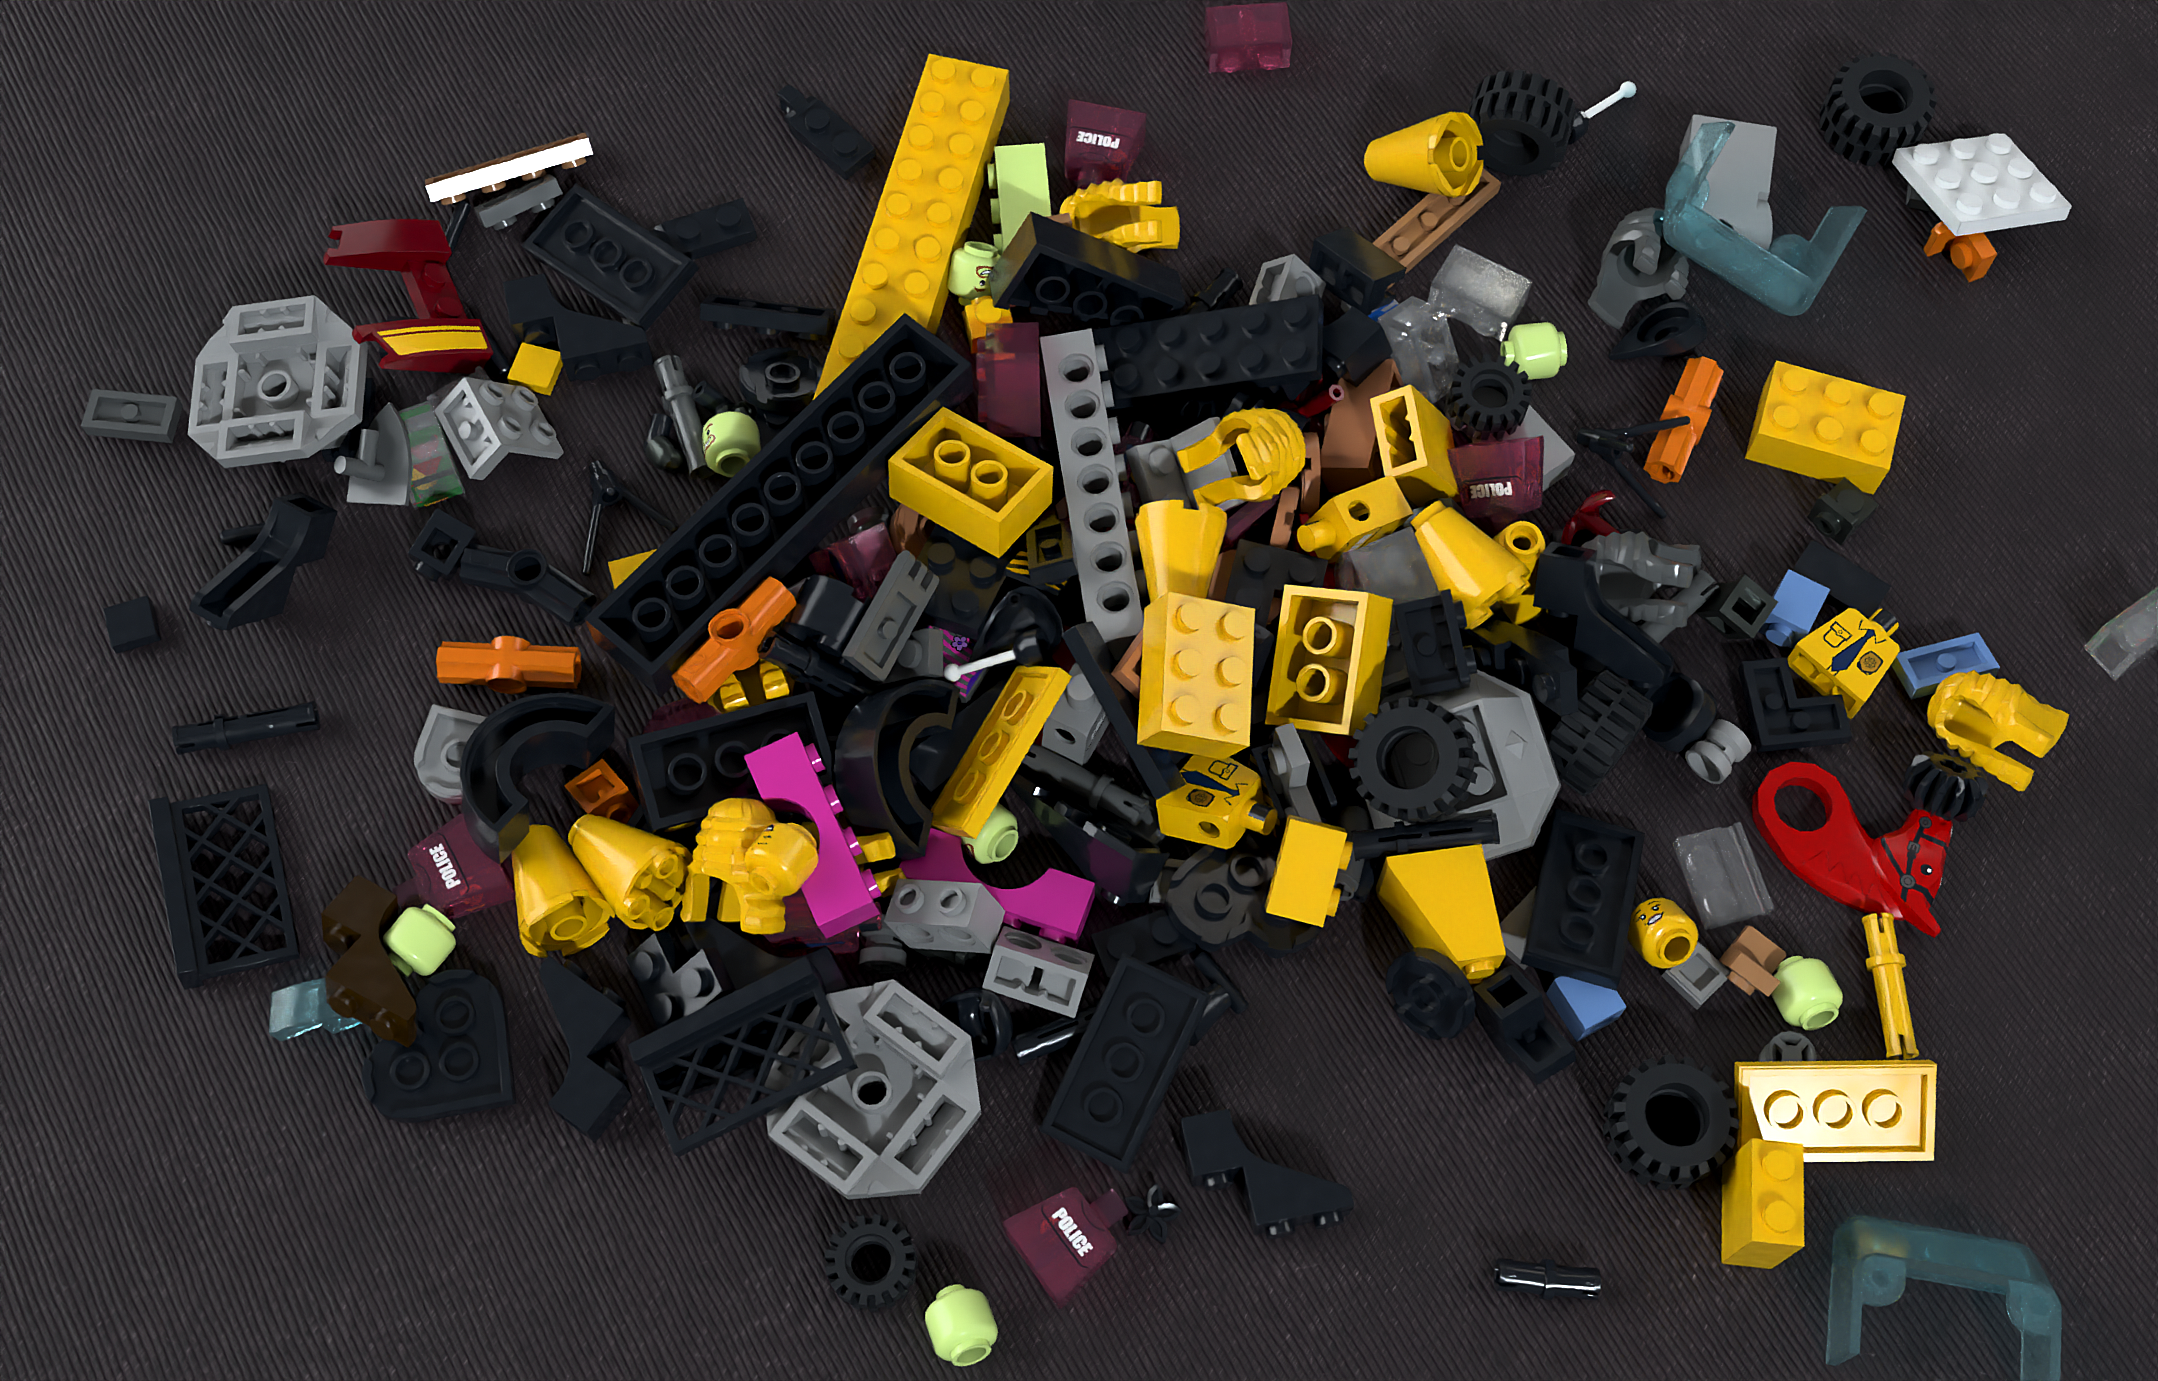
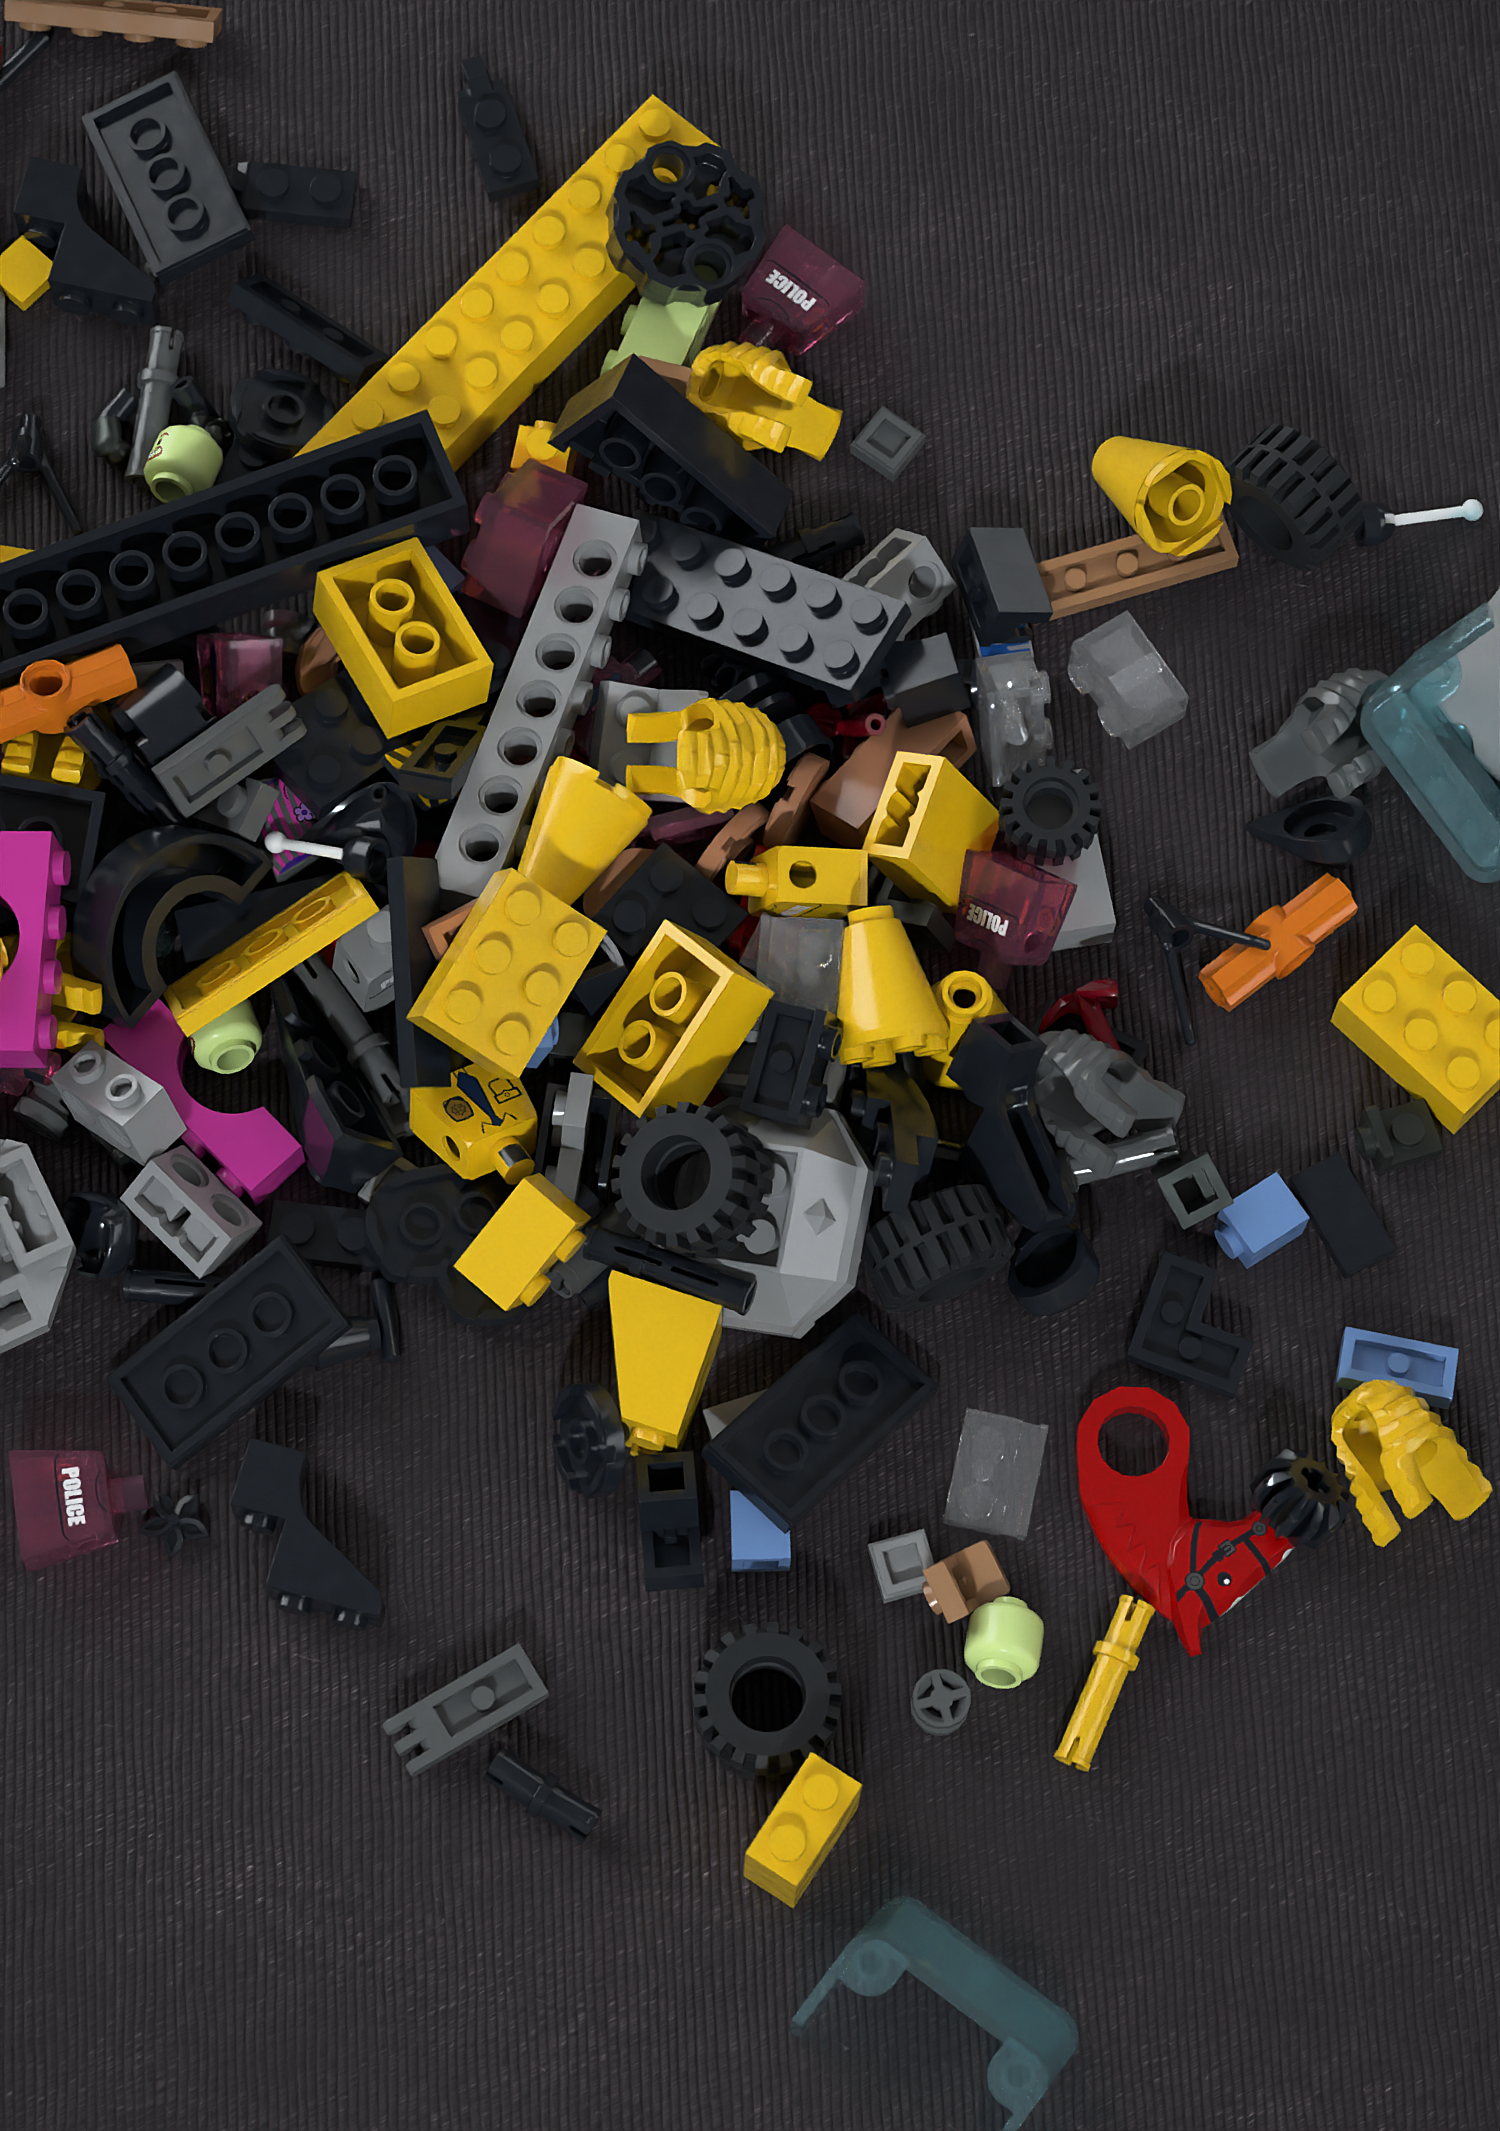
camera: 25 degrees right, 5 degrees up
(502, 210) = (82, 63): dark grey plate -> none
(970, 271) = (558, 379): yellowish green head -> none
(1026, 120) = (650, 209): none -> black connector
(1216, 216) = (887, 443): none -> dark grey tile
(1247, 37) = (1048, 238): clear pink brick -> none
(1454, 1241) = (467, 1708): none -> dark grey hinge
(1536, 349) = (1151, 779): yellowish green head -> none
(1662, 933) = (883, 1500): yellow head -> none
(1718, 751) = (1075, 1337): light grey wheel -> none
(1840, 1108) = (955, 1779): yellow tile -> none
(1847, 656) = (1291, 1303): yellow torso -> none

